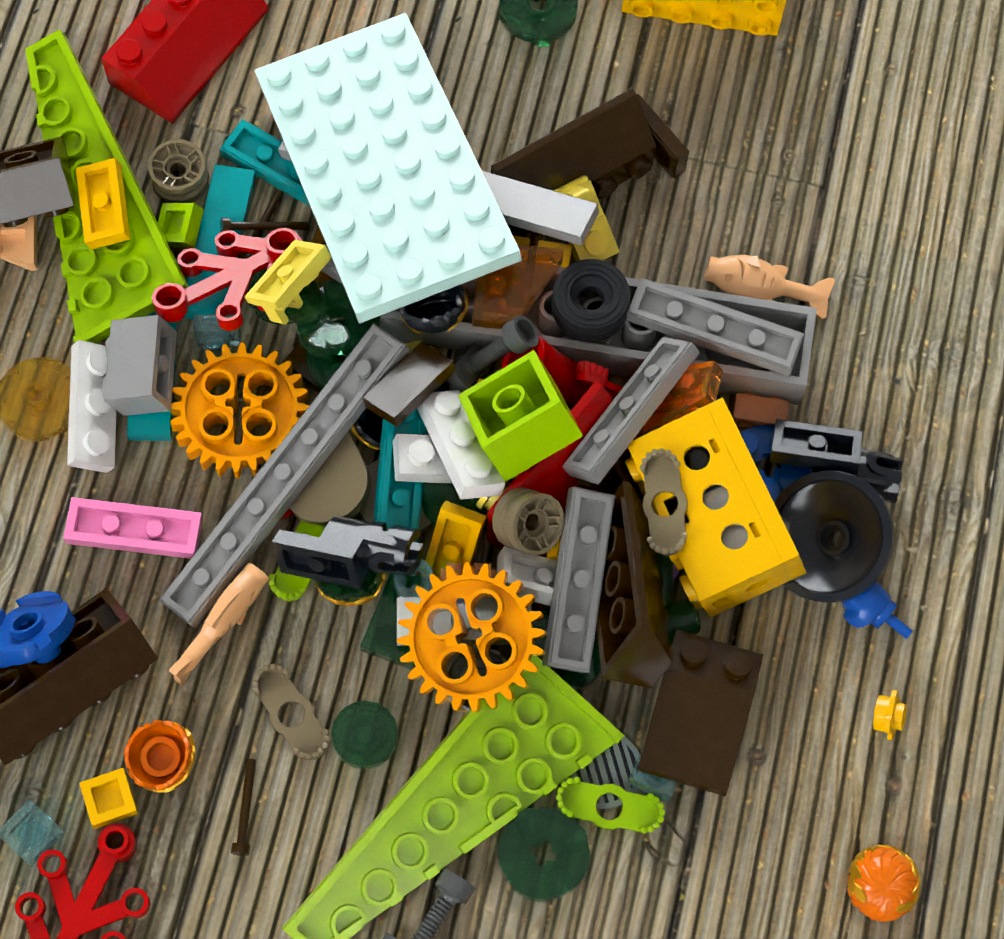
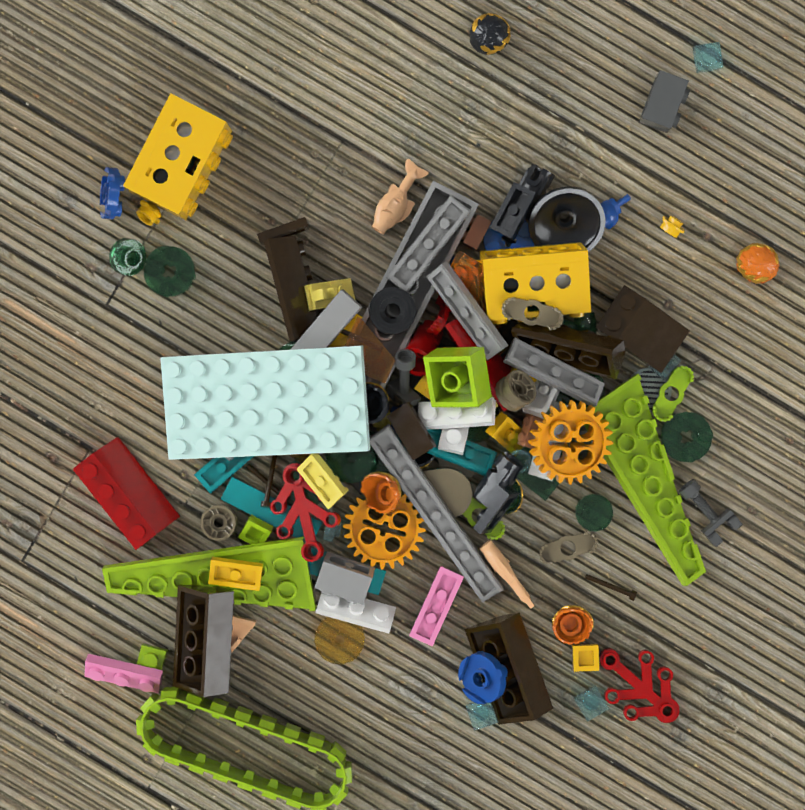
camera: 65 degrees left, 20 degrees up
(298, 373) = (381, 491): none -> orange hair

